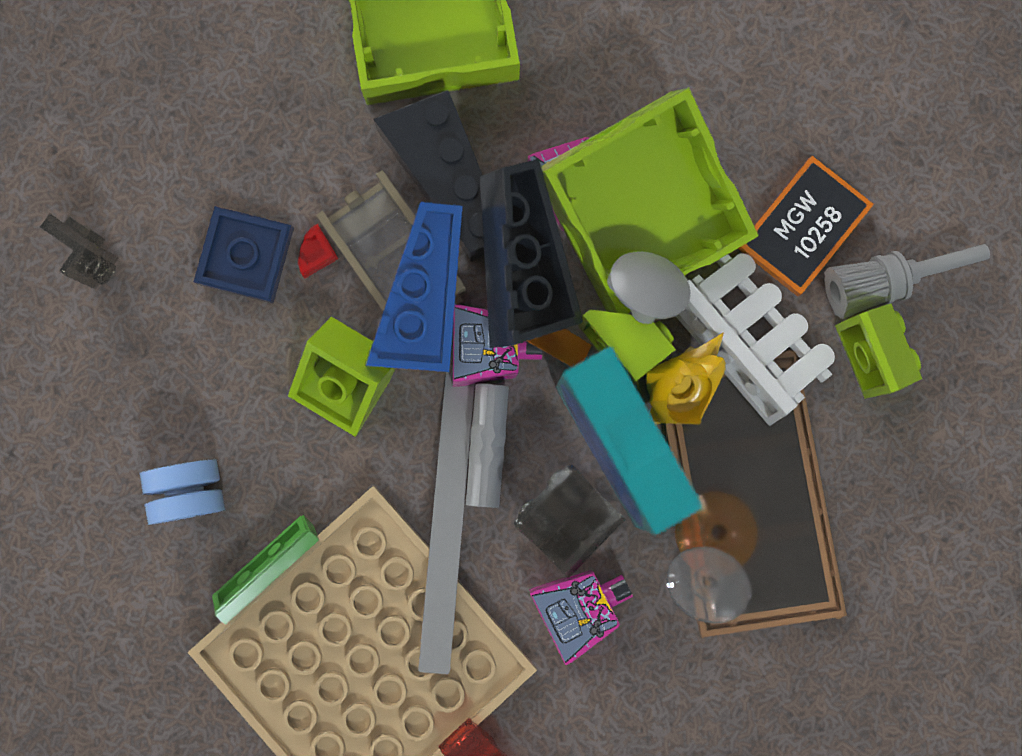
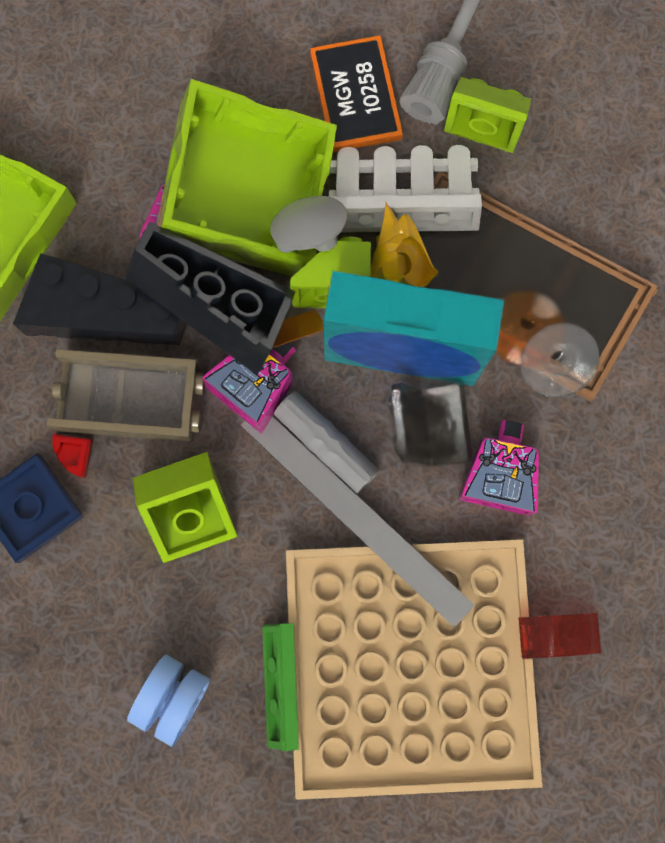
camera: 50 degrees left, 5 degrees down
(421, 302) = (181, 399): blue wing -> none

